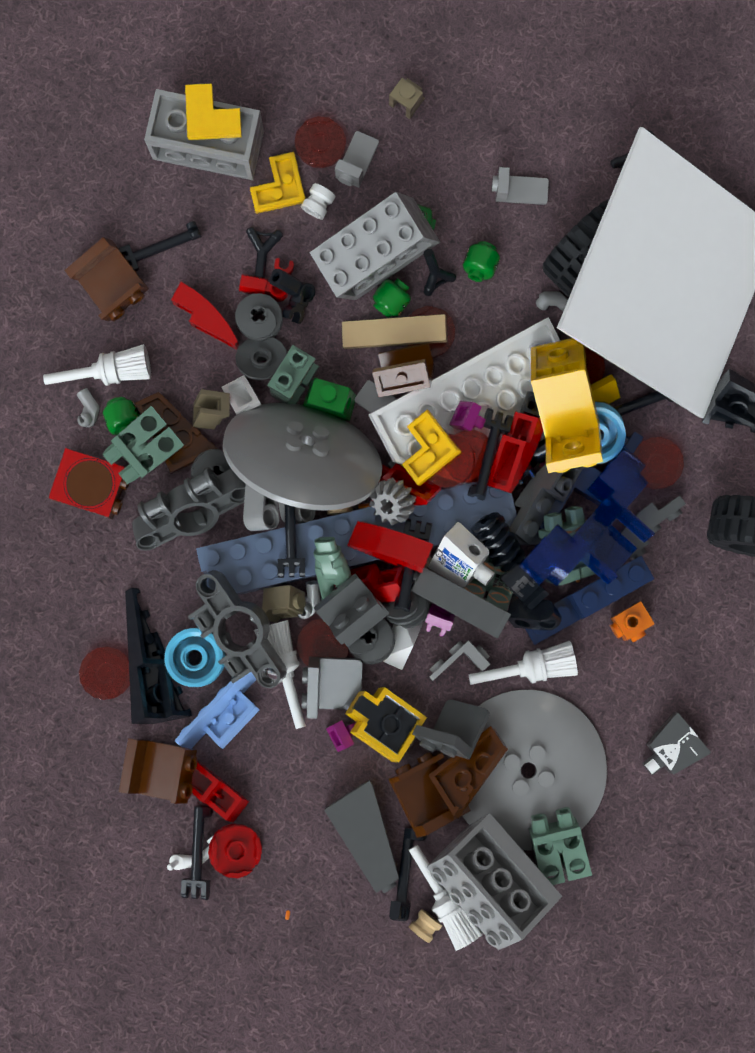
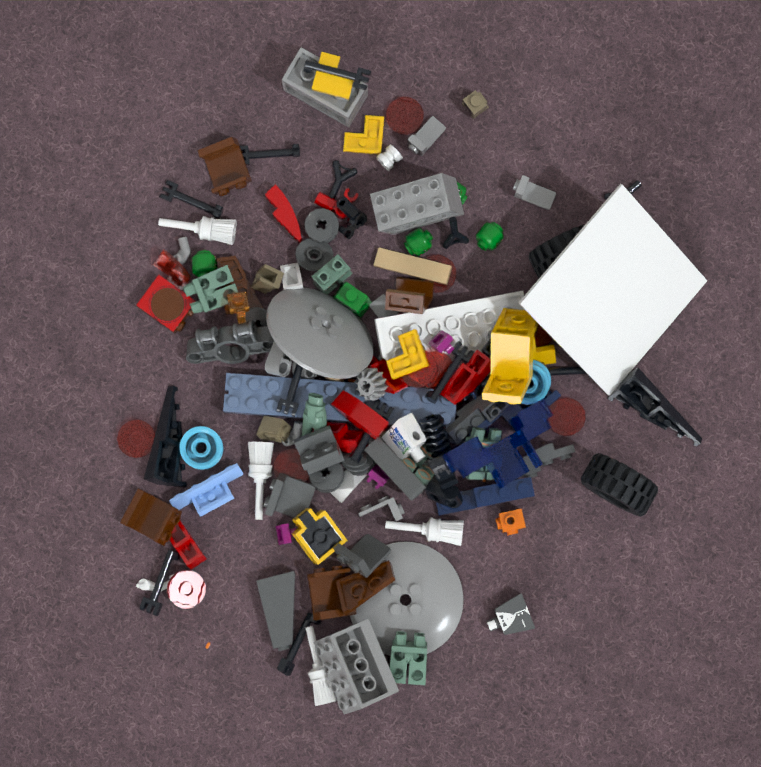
camera: 20 degrees right, 0 degrees up
(52, 337) = (173, 193): none -> black hinge
(76, 432) = (173, 268): none -> clear red slope
(175, 107) = (356, 77): none -> black hinge
(183, 452) = (238, 304): none -> clear orange plate
(240, 660) = (222, 423): dark grey piece -> none
(425, 926) = (300, 683): tan wheel -> none
(551, 298) = (528, 277): light grey arm -> none

